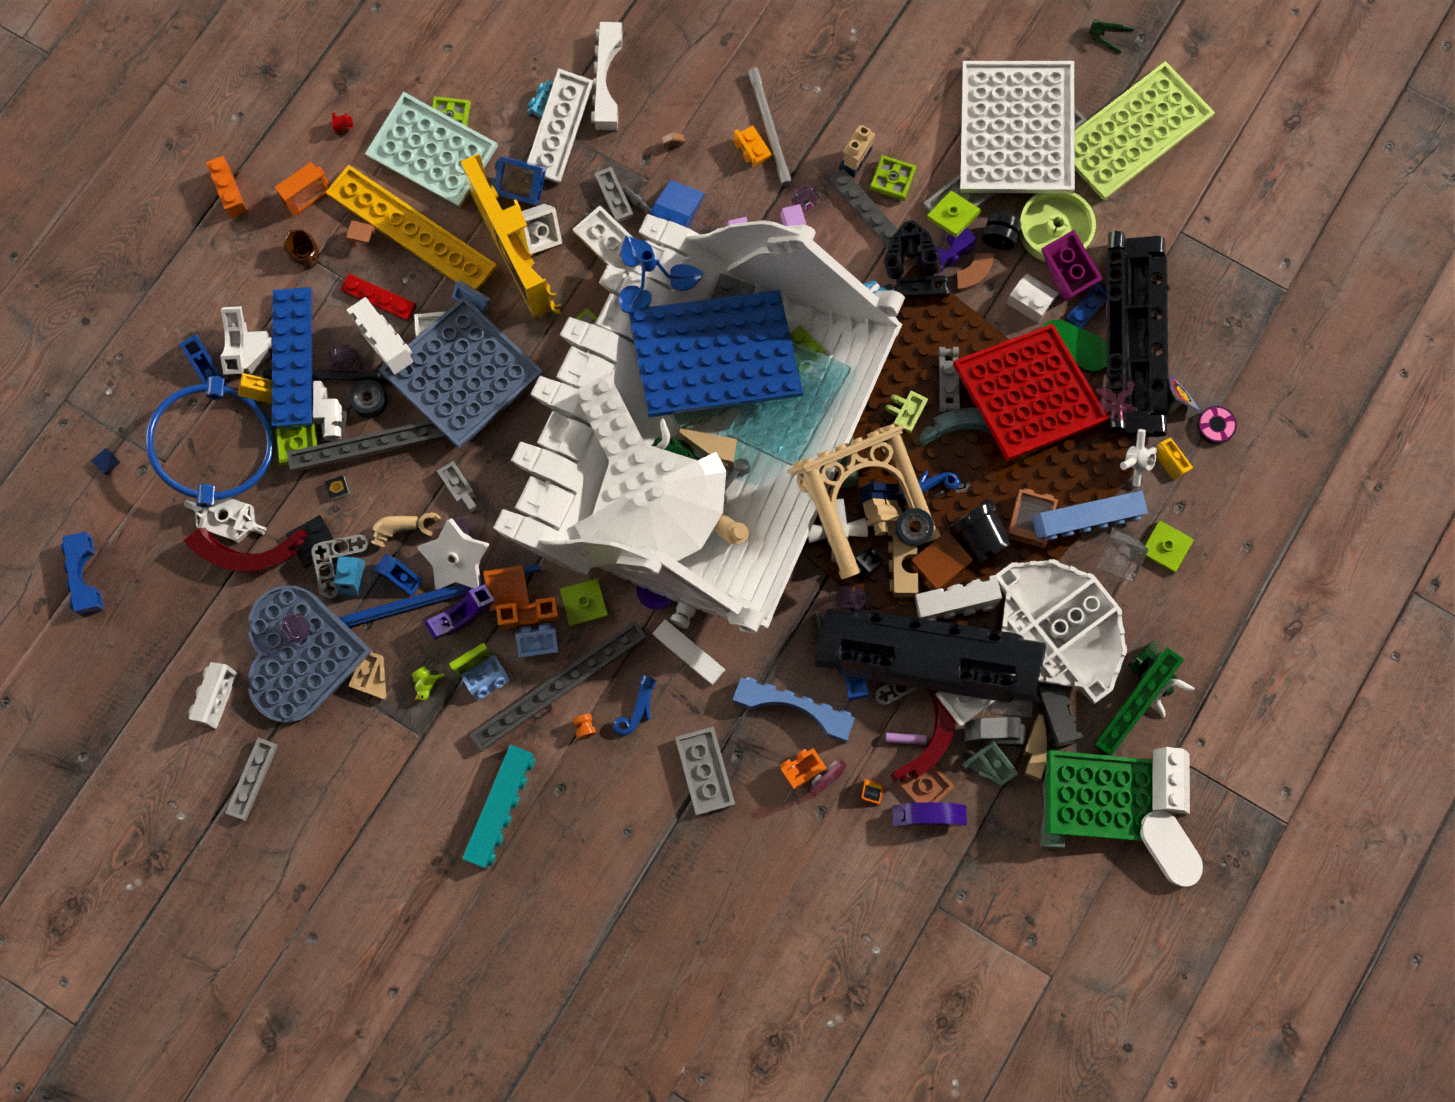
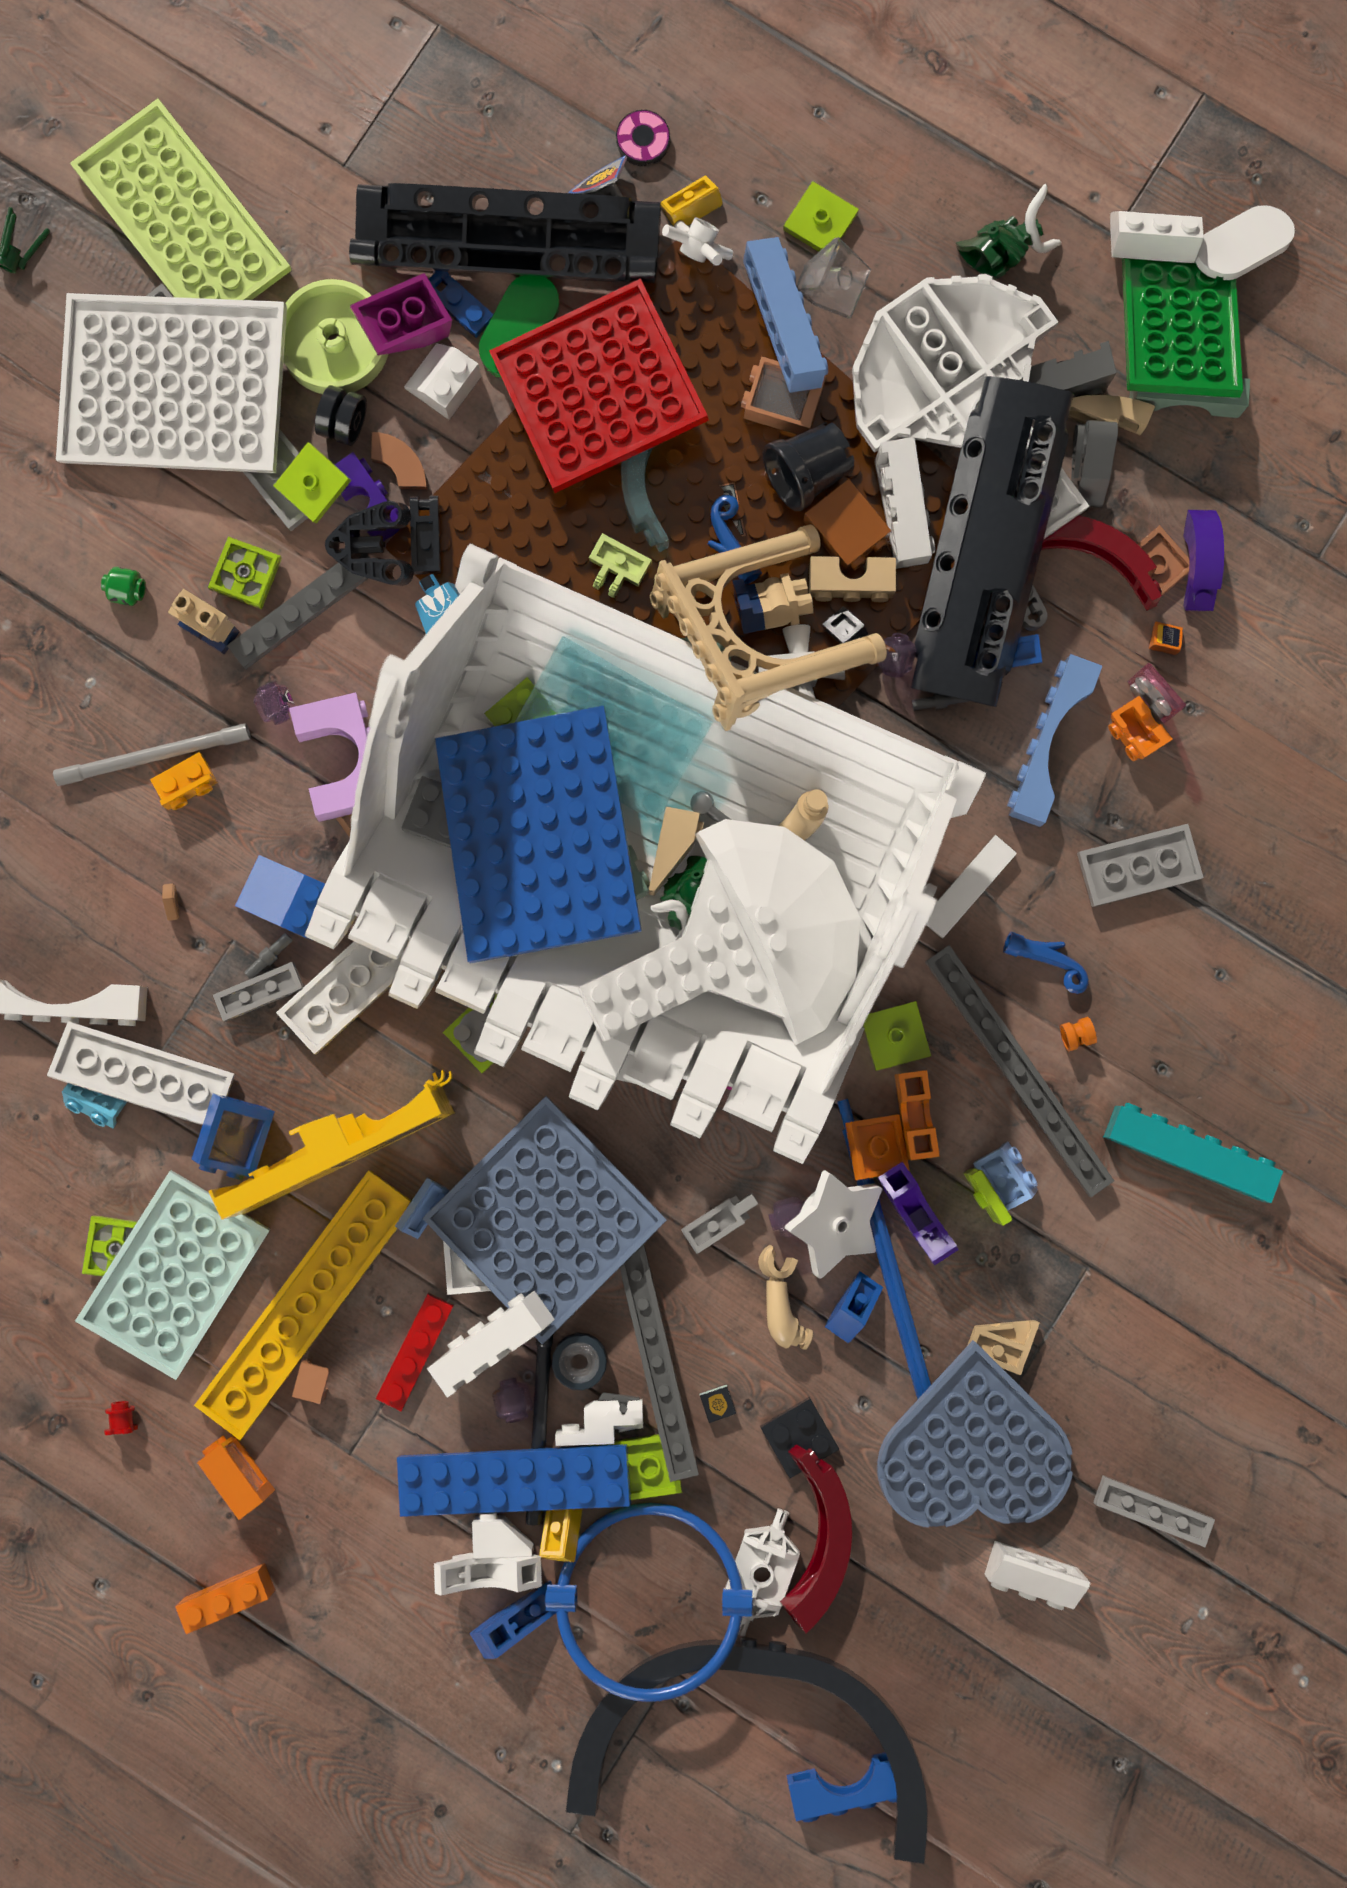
camera: 90 degrees left, 10 degrees up
(106, 461) = (671, 1762): dark blue tile -> none
(167, 522) = (771, 1661): none -> black arch
(295, 627) = (947, 1455): clear purple head -> none
(301, 247) = (333, 1474): reddish brown hair -> none
(331, 553) = (824, 1408): light grey beam -> none
(349, 573) = (854, 1379): dark azure torso -> none
(424, 682) = (1014, 1264): lime animal -> none
(536, 640) = (952, 1103): light blue bracket -> none
(541, 229) = (309, 1099): white slope -> none
(638, 252) = (369, 947): blue plant -> none
(880, 104) = (123, 586): none -> green head
(905, 738) = (1092, 589): lavender piece -> none
(914, 538) = (818, 548): wheel -> none
(948, 380) = (570, 504): light grey plate -> none
(991, 764) = (1131, 473): sand green wing -> none
(1117, 404) = (622, 262): clear pink piece -> none
(1139, 700) = (1051, 264): green plate -> none

